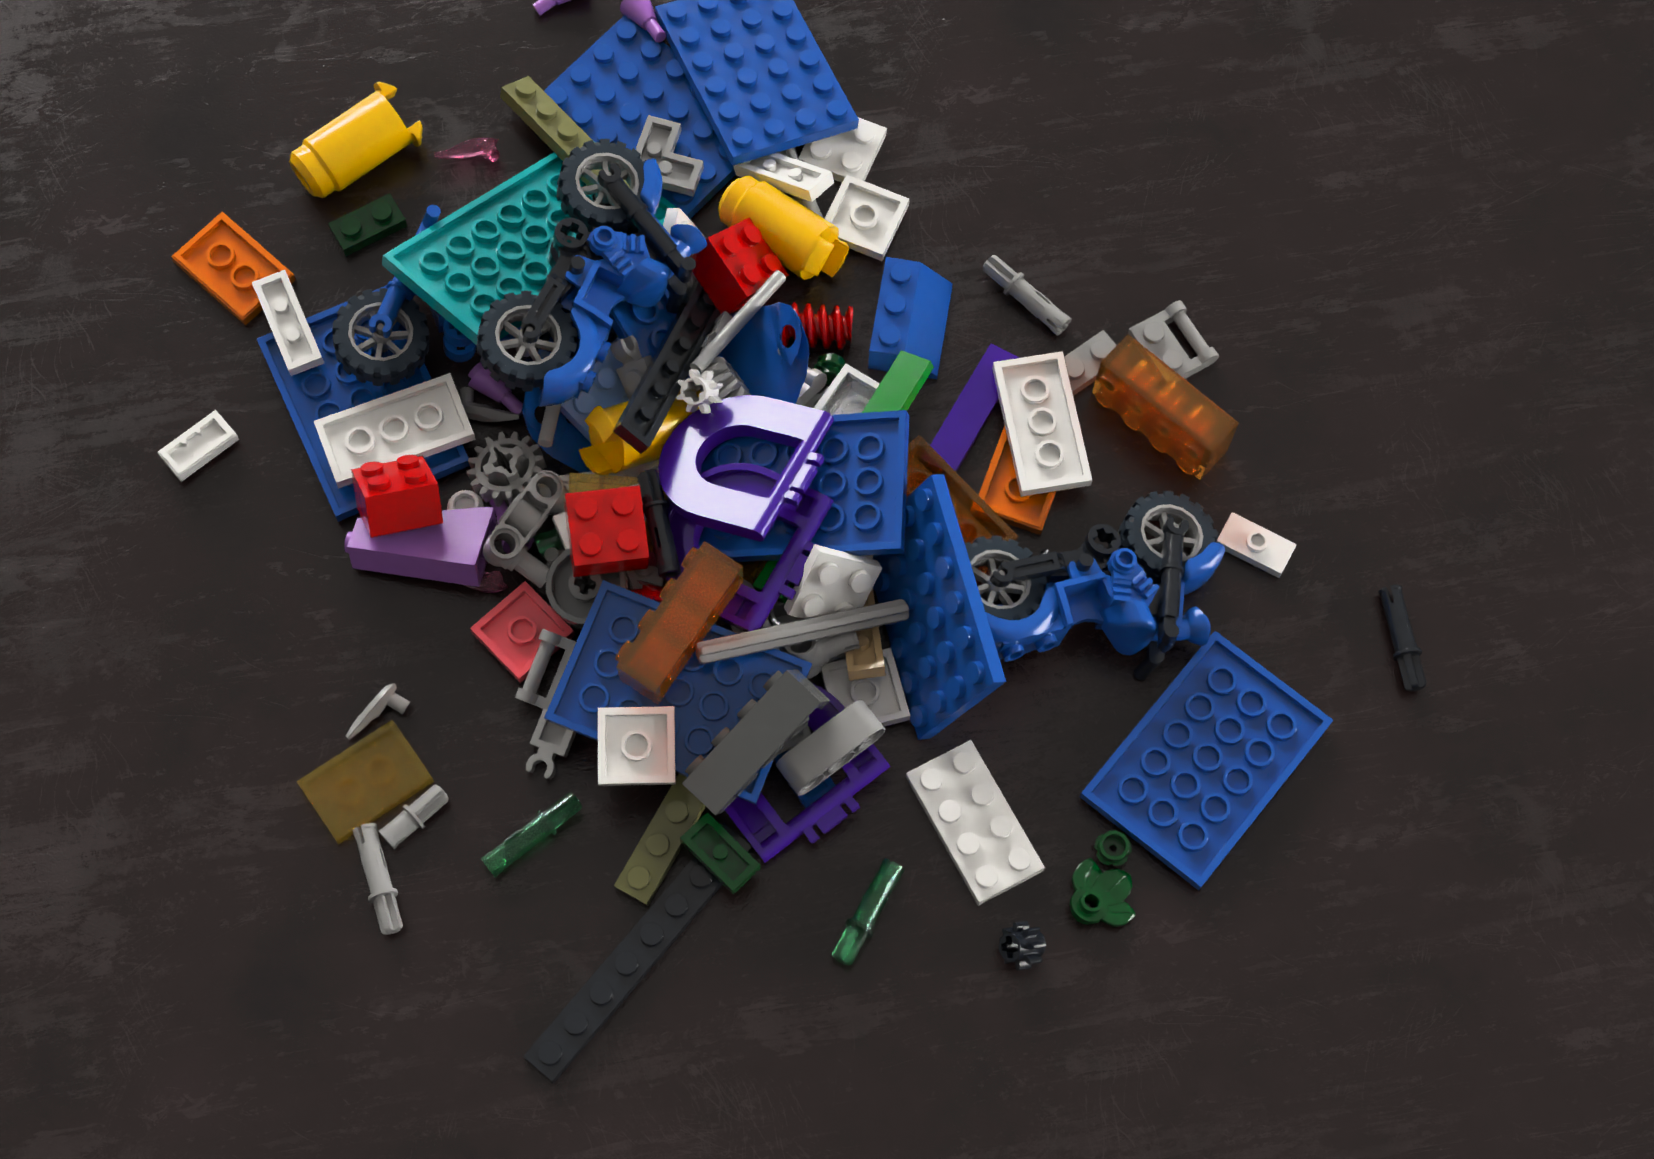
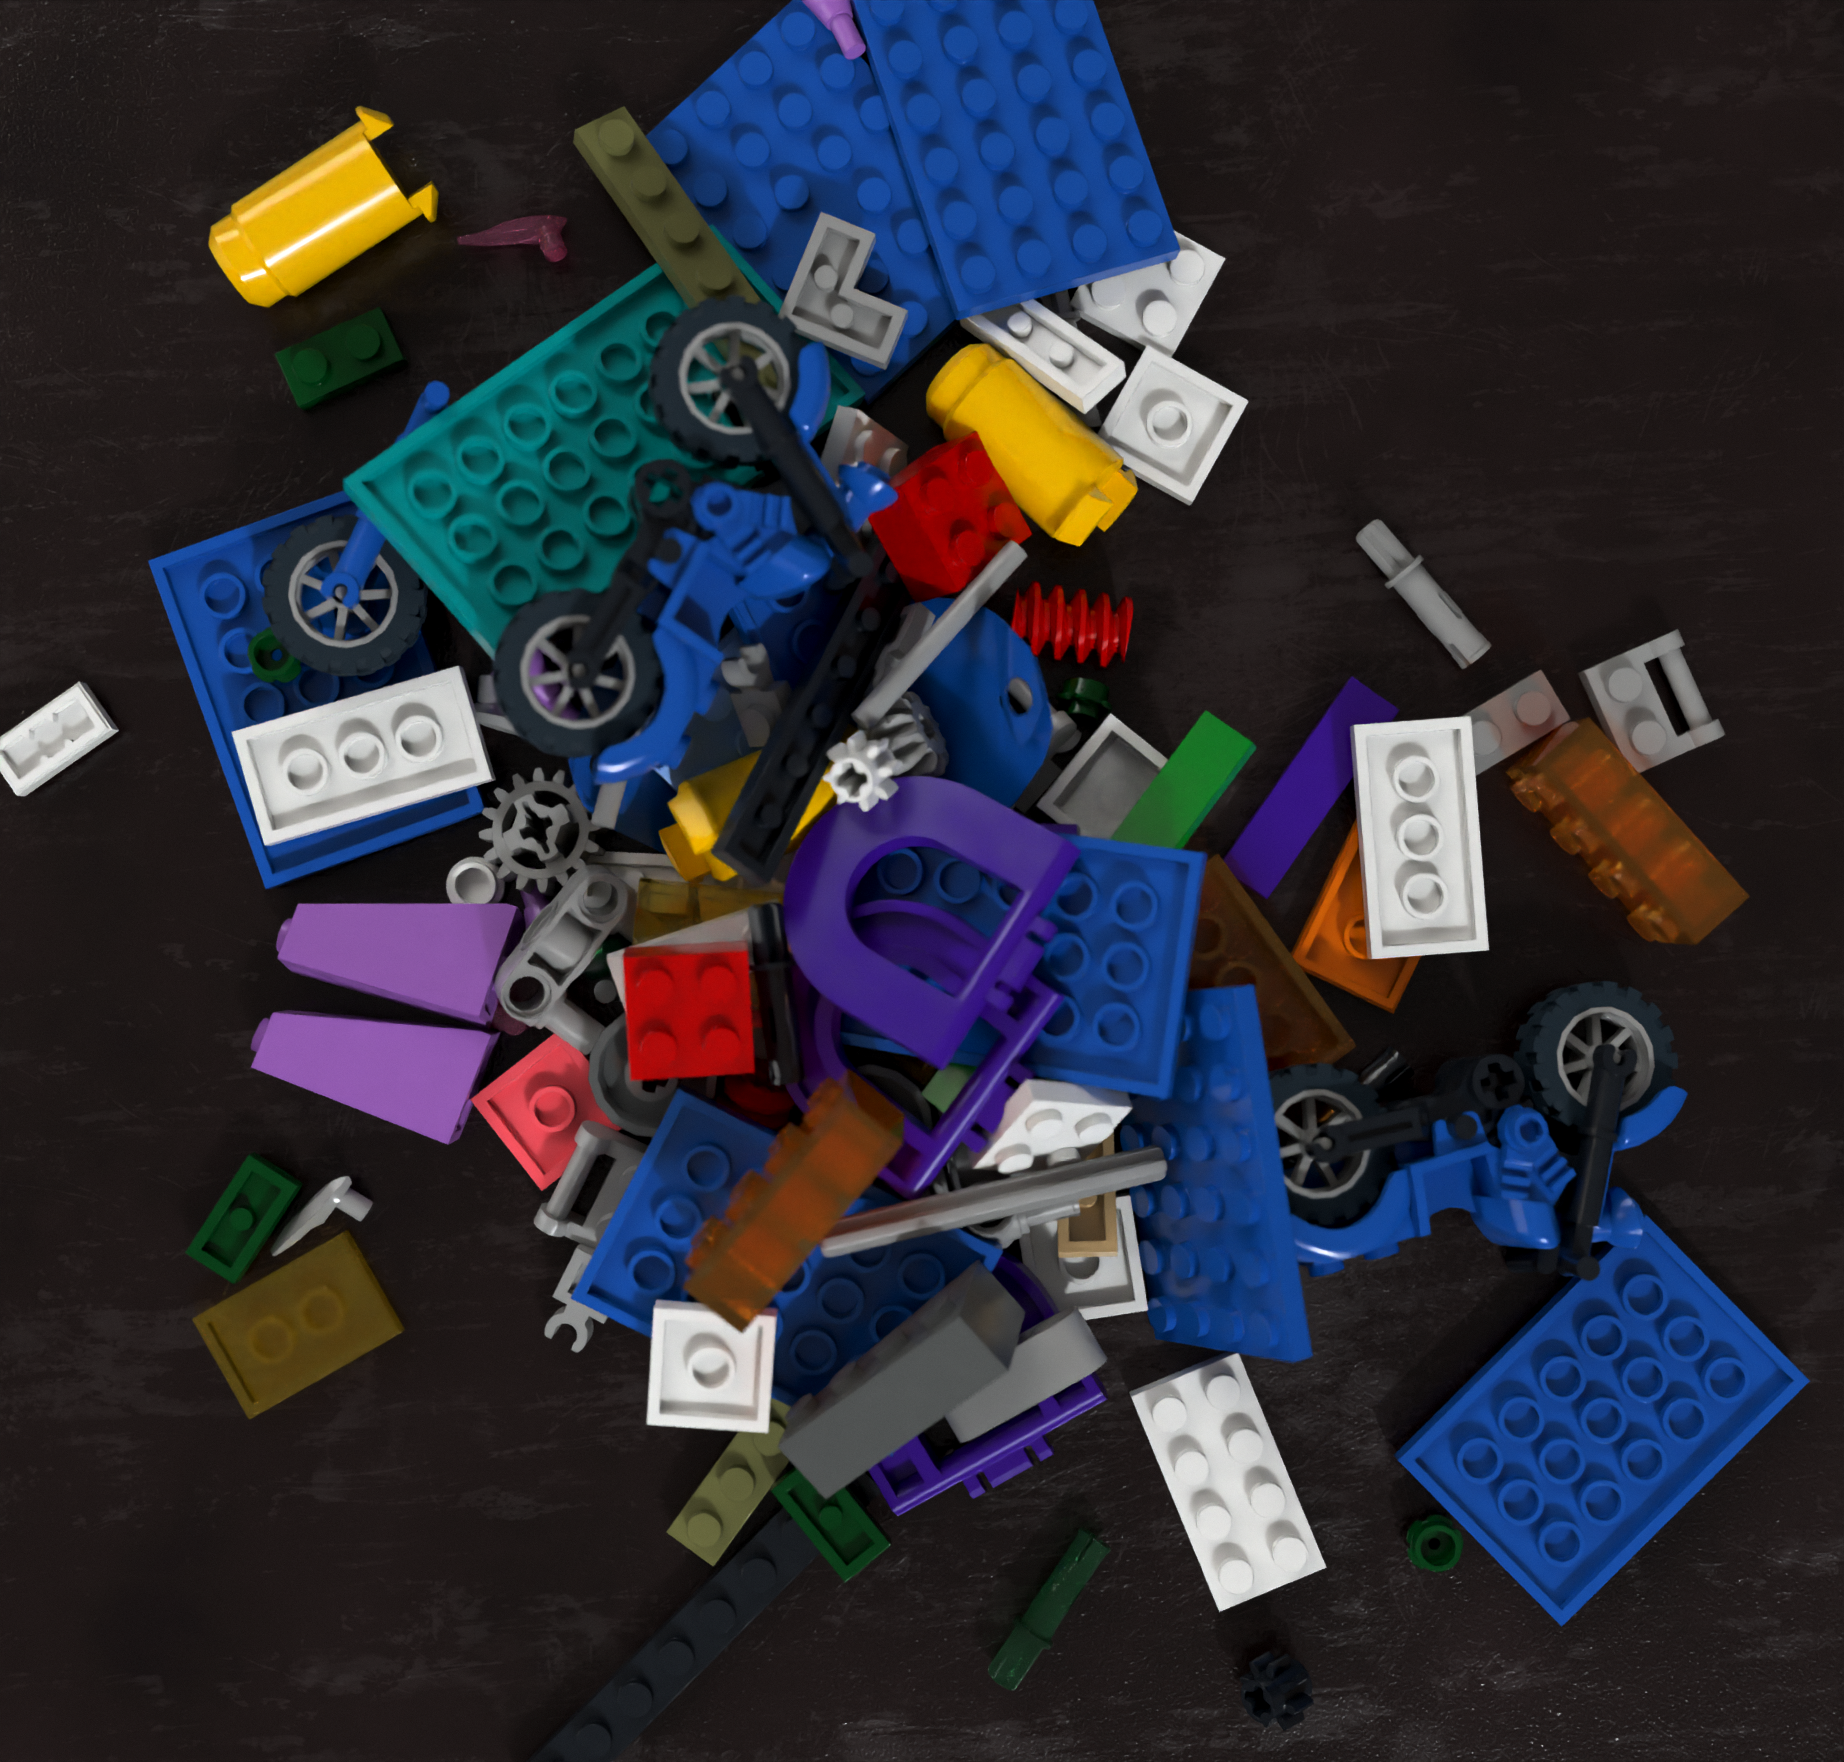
camera: 10 degrees right, 20 degrees up
(226, 264) = (117, 419): orange tile -> none
(288, 322) = (196, 544): white plate -> none
(328, 715) = (244, 1218): none -> dark green plate
(333, 372) = (263, 664): none -> dark green plate
(378, 878) = (310, 1484): light grey axle -> none
(397, 495) = (358, 885): red brick -> none
(412, 613) = (385, 1067): none -> medium lavender slope
(414, 816) = (368, 1391): light grey axle -> none
(531, 834) = (546, 1438): clear green axle -> none
(909, 314) = (1224, 622): blue slope -> none
(1104, 891) = (1412, 1607): dark green plate -> none
(1256, 545) = (1732, 1067): white plate -> none

